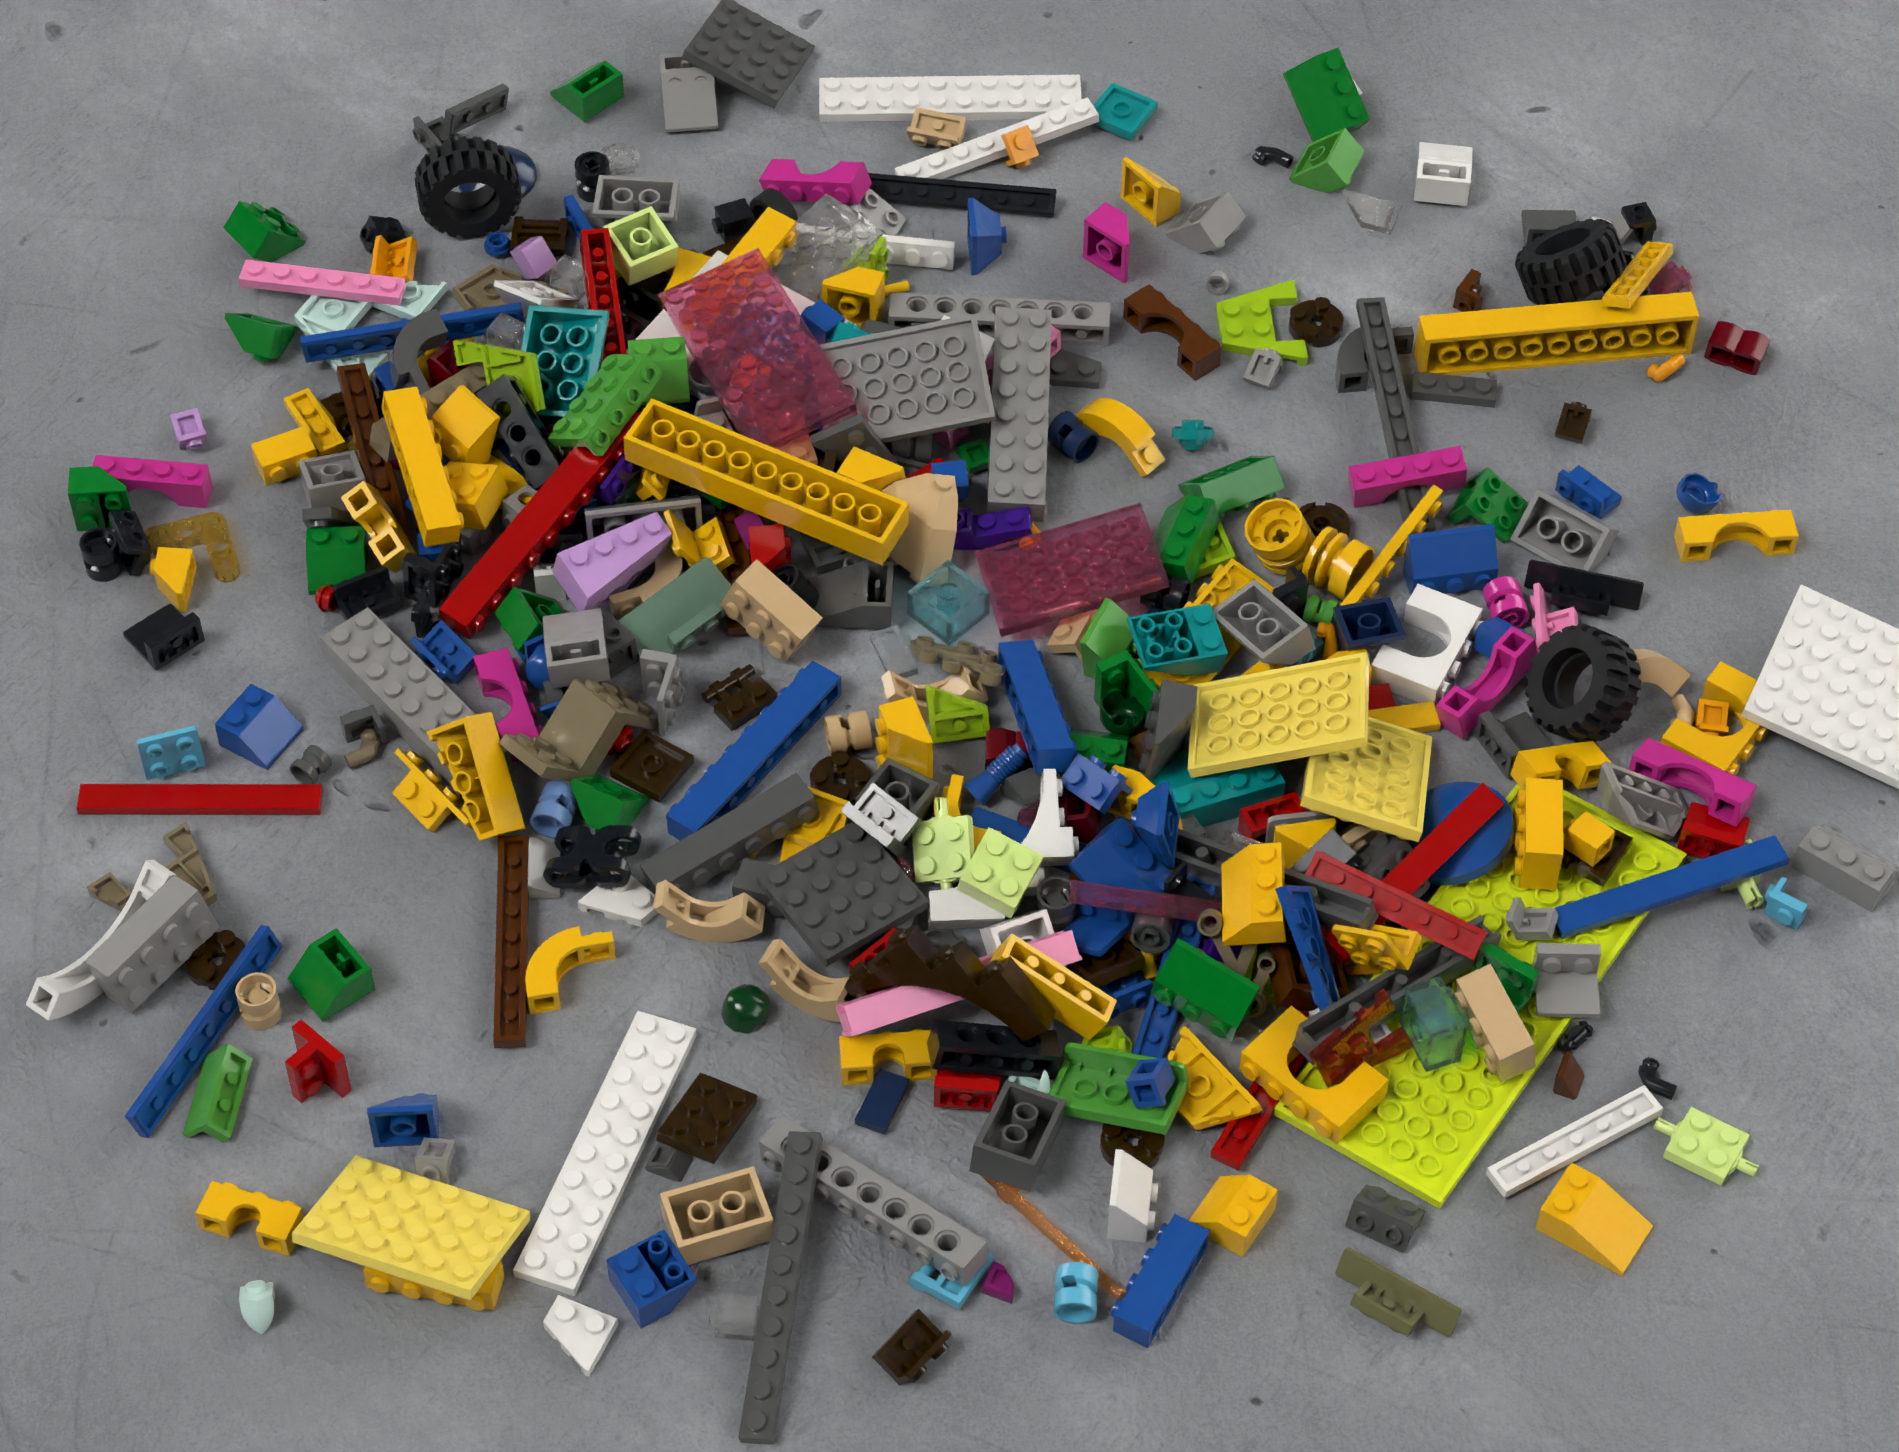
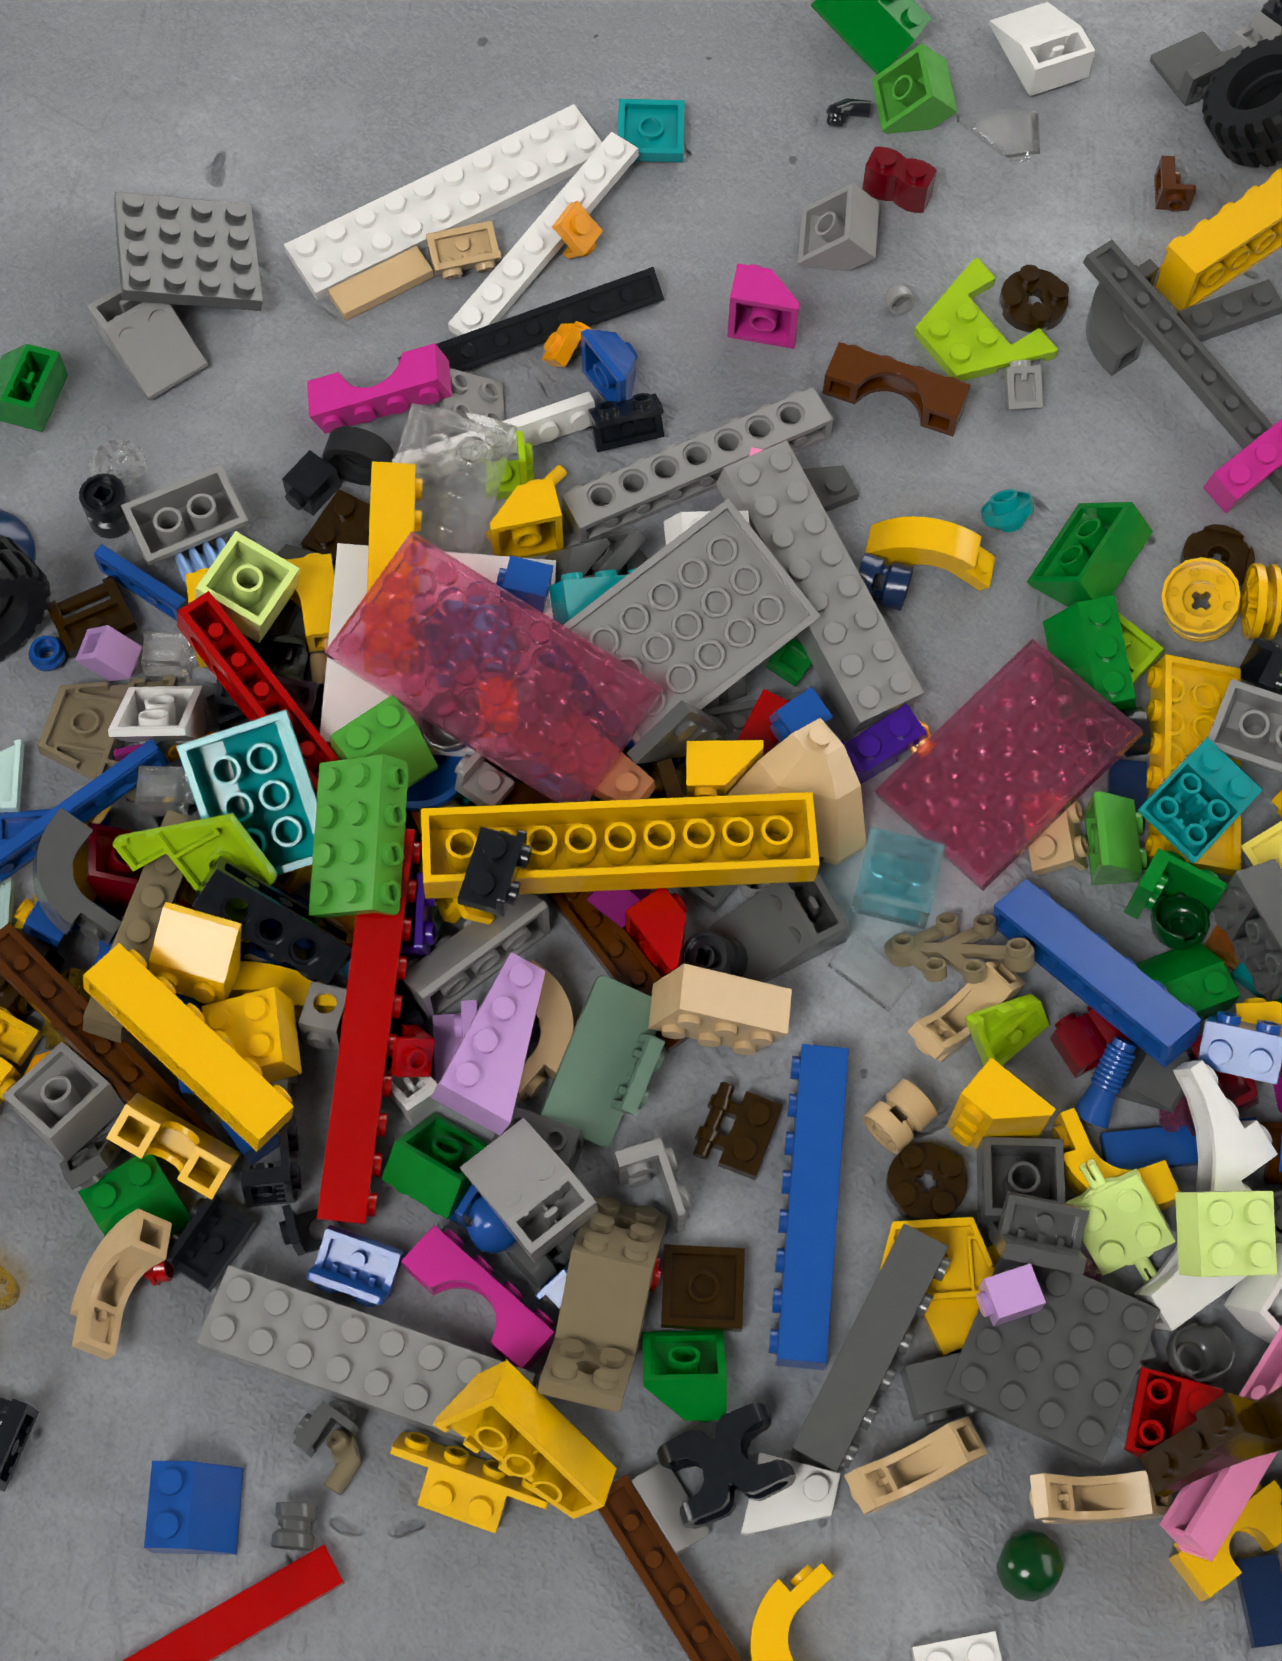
camera: 30 degrees left, 15 degrees up
(171, 752) = (105, 1609): medium azure bracket -> none
(297, 585) = (112, 1272): none -> tan arch
(555, 809) = (636, 1424): medium blue wheel -> none
(556, 542) = (412, 1053): none -> red bracket
(670, 449) = (493, 871): none -> black bracket
(706, 541) = (569, 951): yellow bracket -> none
(832, 836) = (1010, 1295): none -> lavender brick
(868, 127) = (380, 283): none -> tan tile
(956, 210) = (562, 343): none -> light orange bracket
(969, 272) = (626, 421): none -> black bracket
(1148, 193) = (754, 223): yellow slope -> none
(1272, 209) = (899, 179): none -> dark red brick

